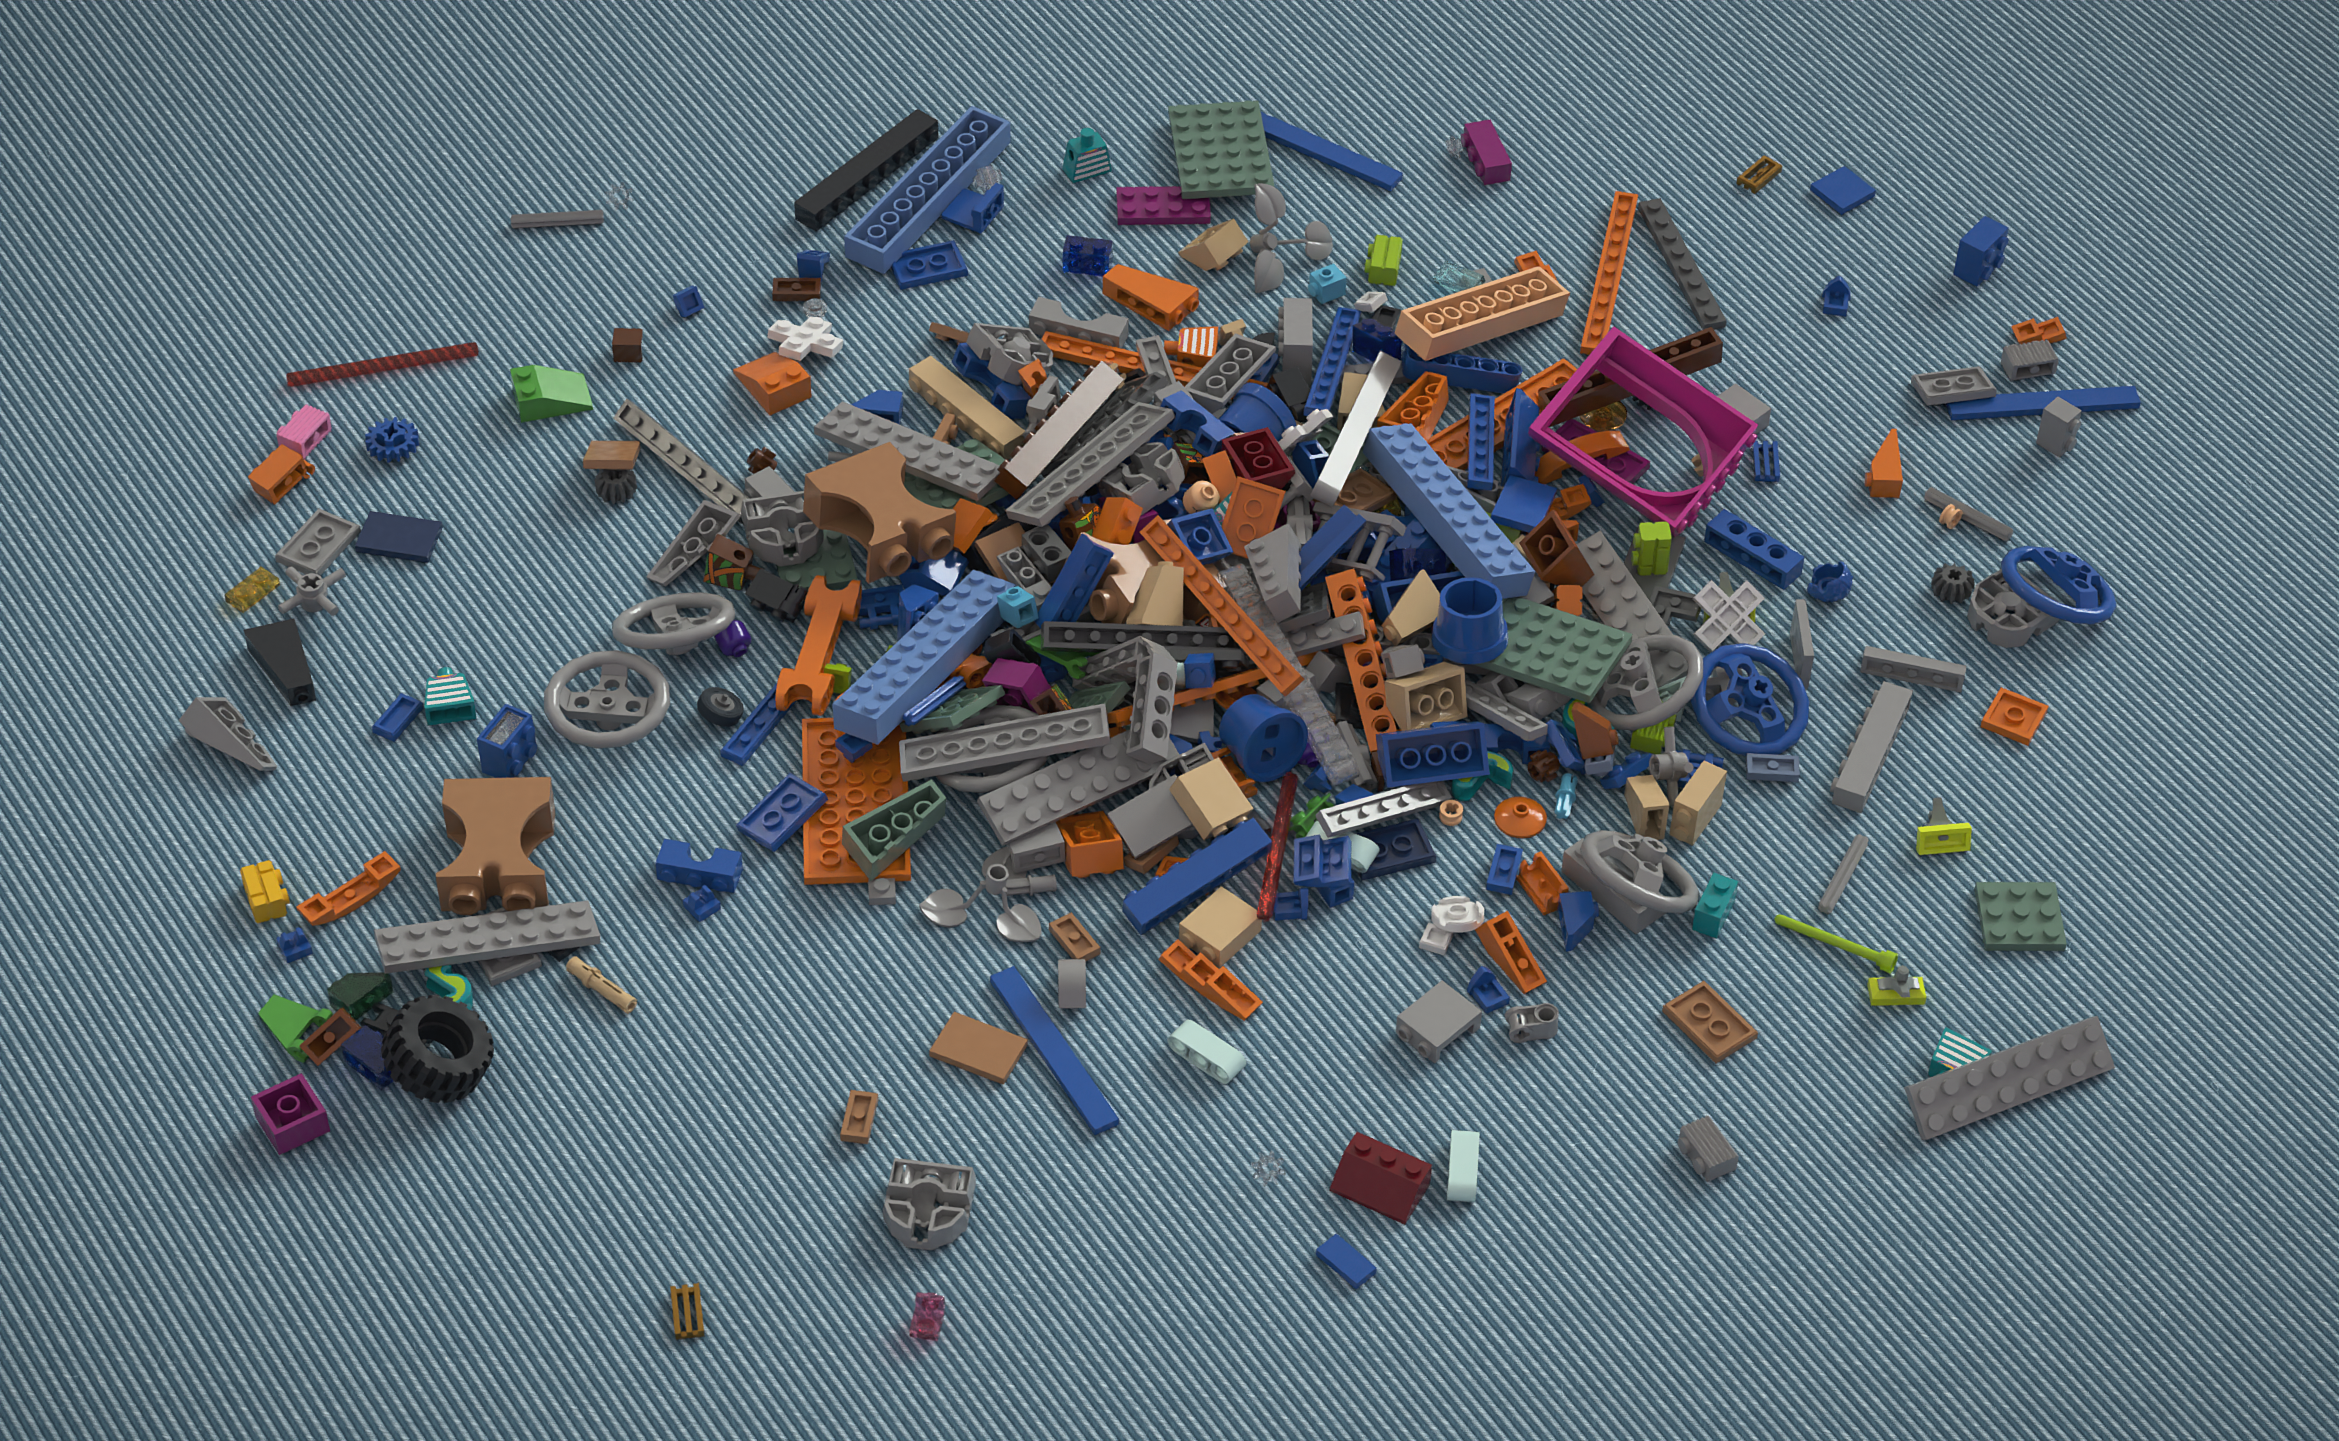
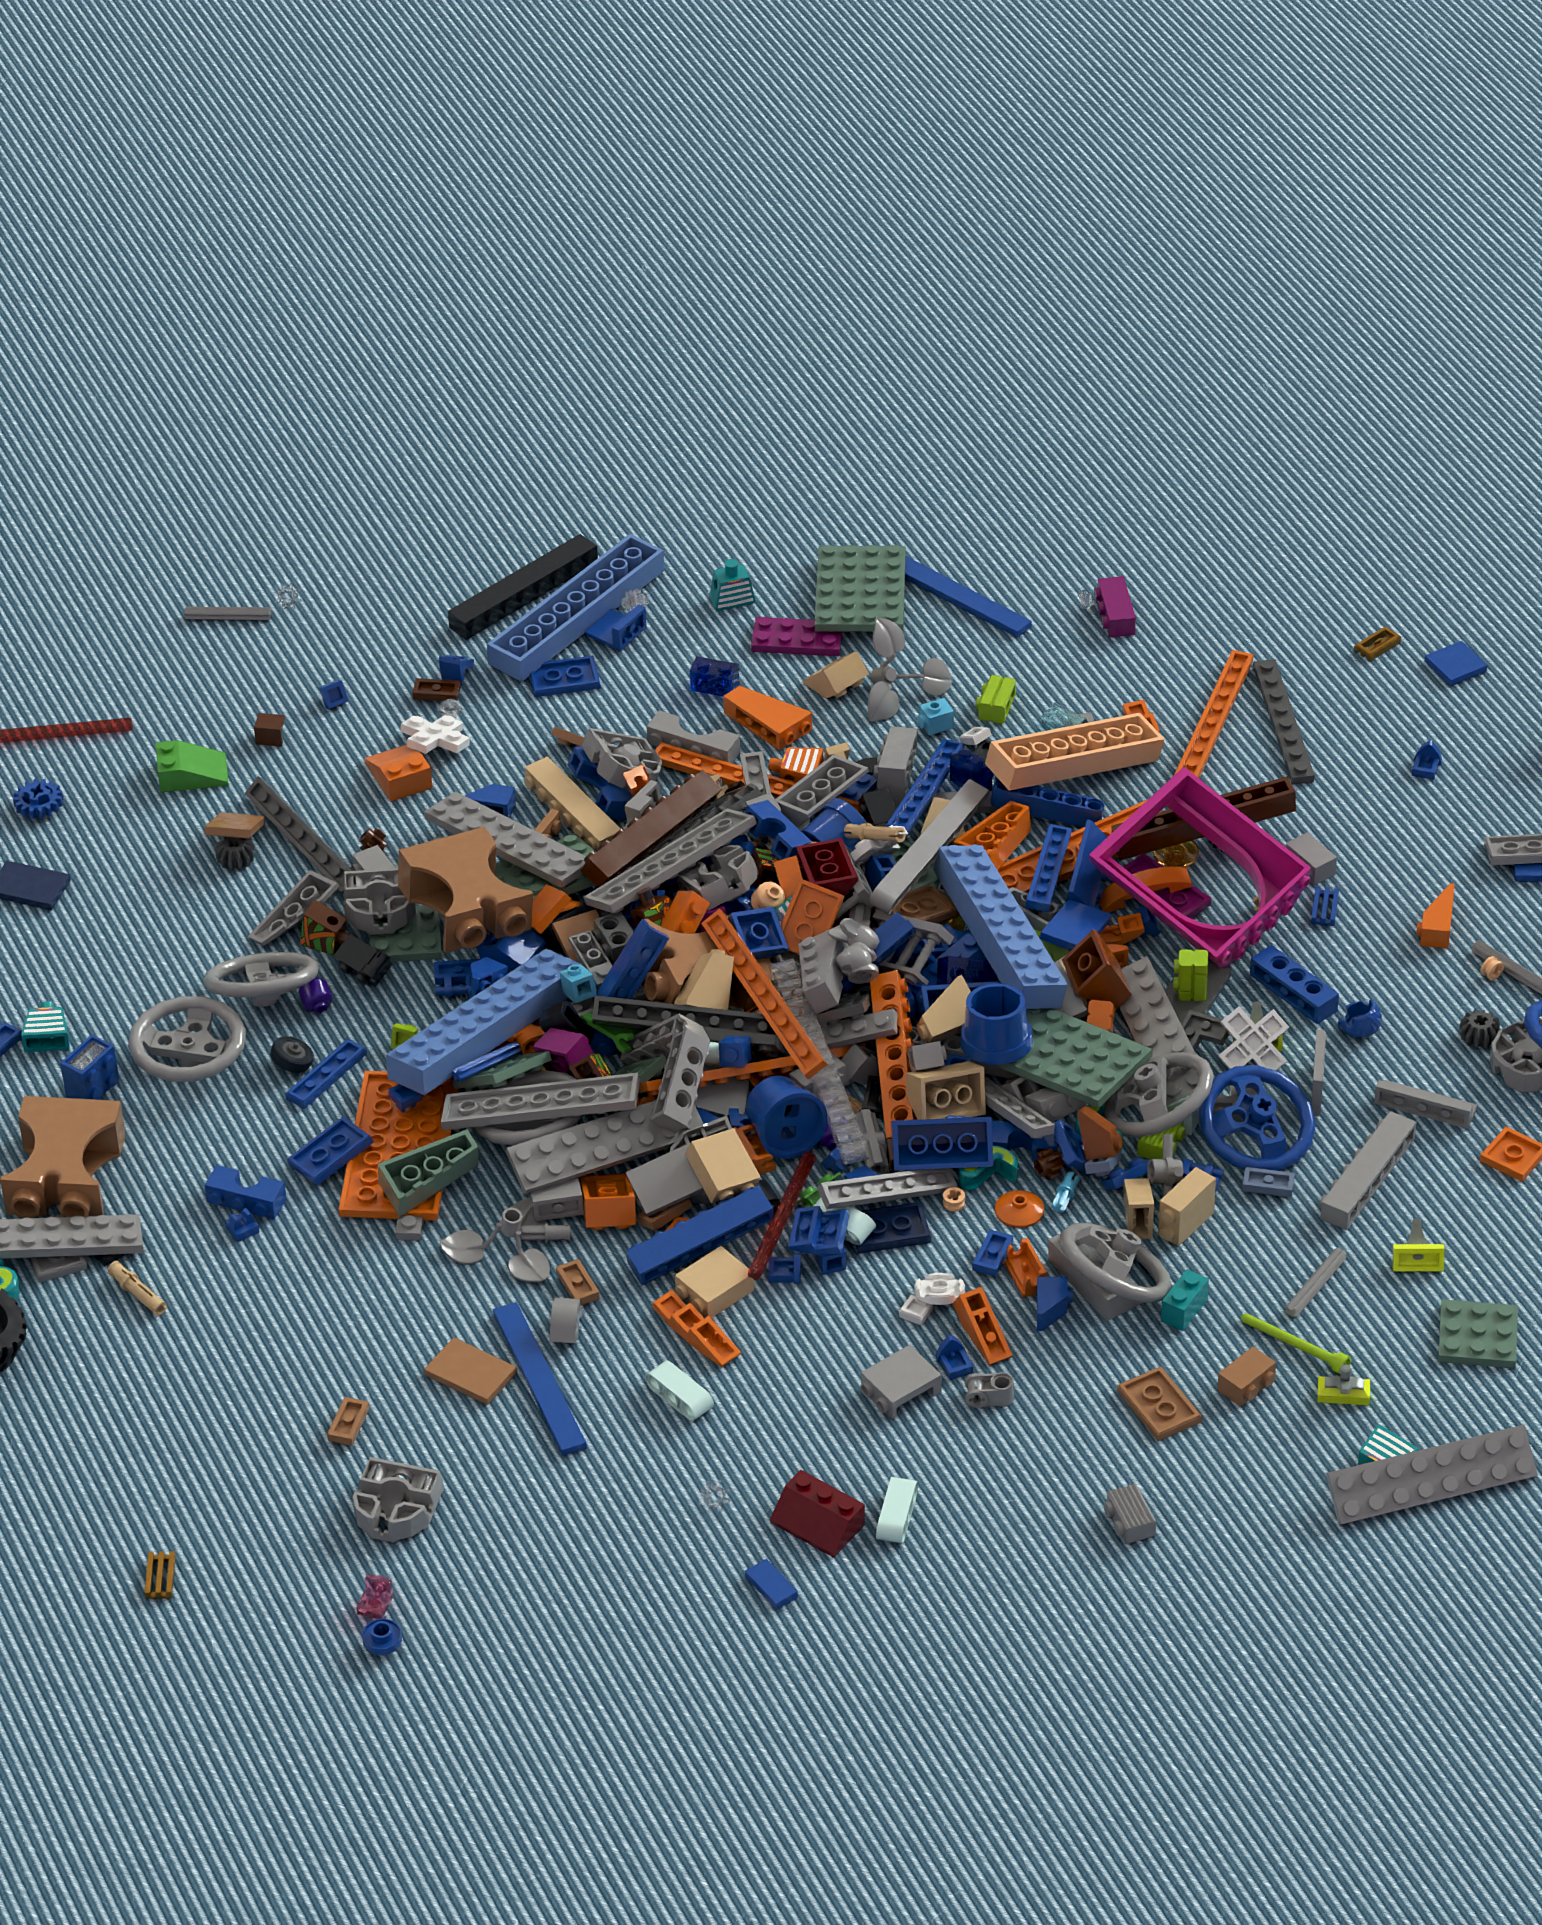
camera: 10 degrees right, 5 degrees down
(828, 612) = (405, 979): orange piece -> none
(943, 1361) = (381, 1636): none -> blue plate
(1297, 418) = (870, 832): none -> tan pin
(1313, 558) = (857, 958): none -> light grey animal
(1796, 985) = (1246, 1376): none -> medium nougat piece

